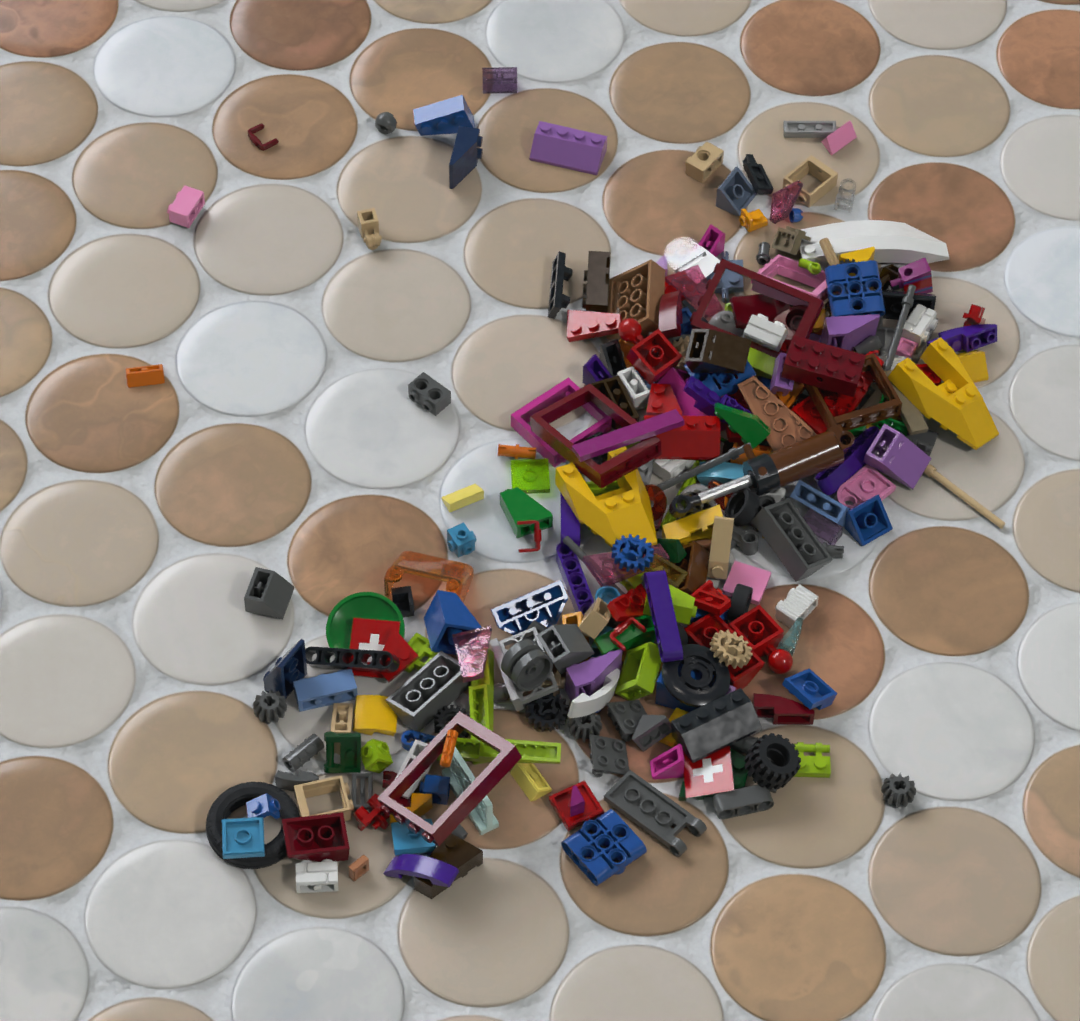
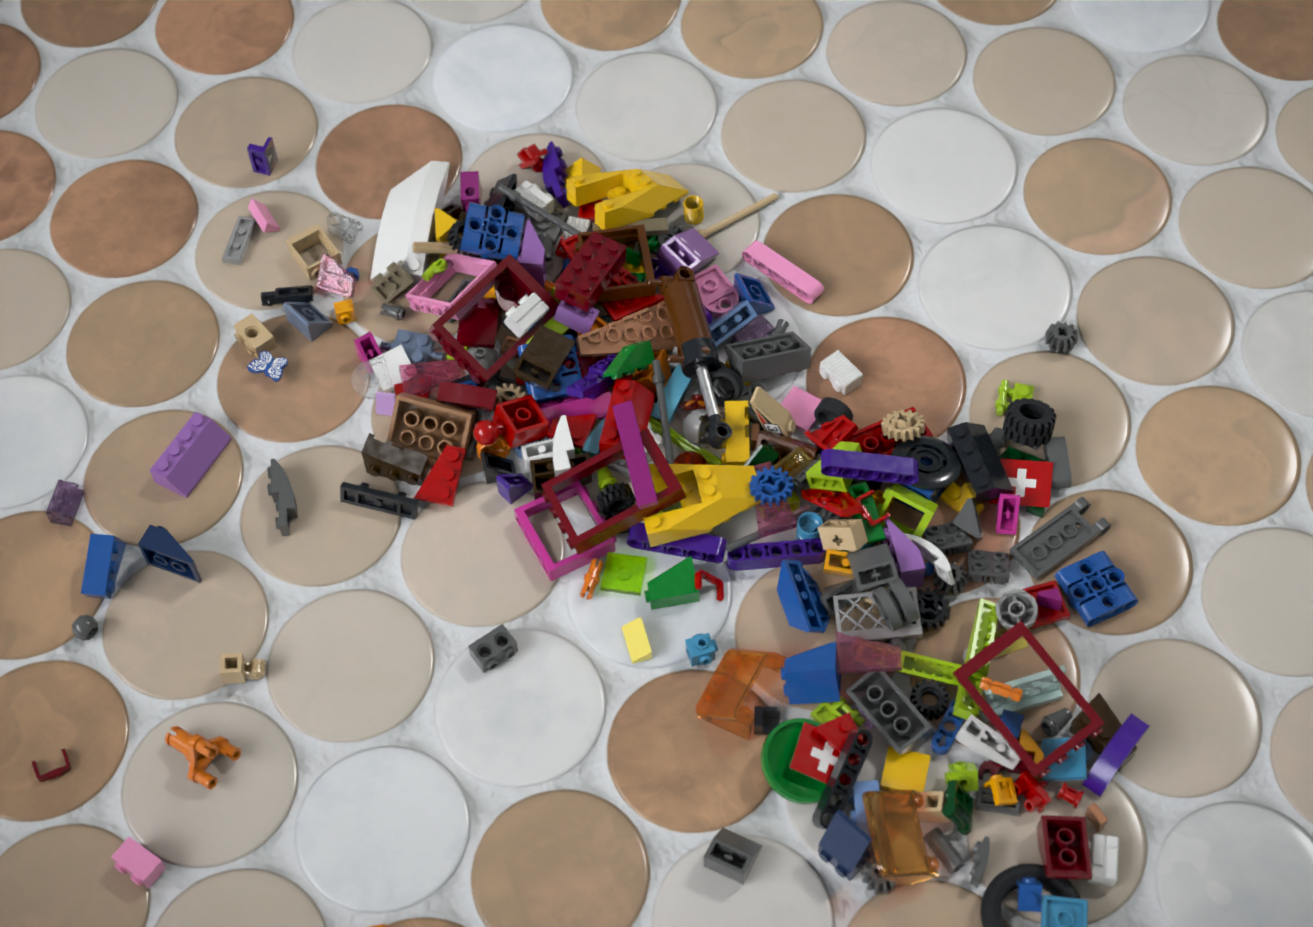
camera: 75 degrees left, 5 degrees up
(288, 221) = (200, 753): none -> orange wheel
(297, 697) = (898, 836): none -> clear orange windscreen
(322, 787) = (1007, 860): tan window -> none
(367, 786) = (1002, 790): none -> light orange bracket
(370, 851) = (1070, 795): none -> red bush
(545, 221) = (282, 496): none -> dark grey slope
(554, 774) = (1015, 607): none -> light grey cylinder
(633, 391) = (562, 447): none -> white slope
(676, 178) = (266, 363): none -> animal
(763, 637) = (873, 403): red brick -> none
(782, 710) = (958, 408): dark red slope -> none
(791, 638) = (881, 386): clear light blue slope -> none
(810, 689) = (945, 378): blue plate -> none
(904, 119) = (263, 158): none -> dark purple panel
(905, 543) = (783, 272): none -> bright pink beam
(906, 348) = (558, 214): bright pink tile -> none
(956, 456) = (693, 209): none -> yellow piece

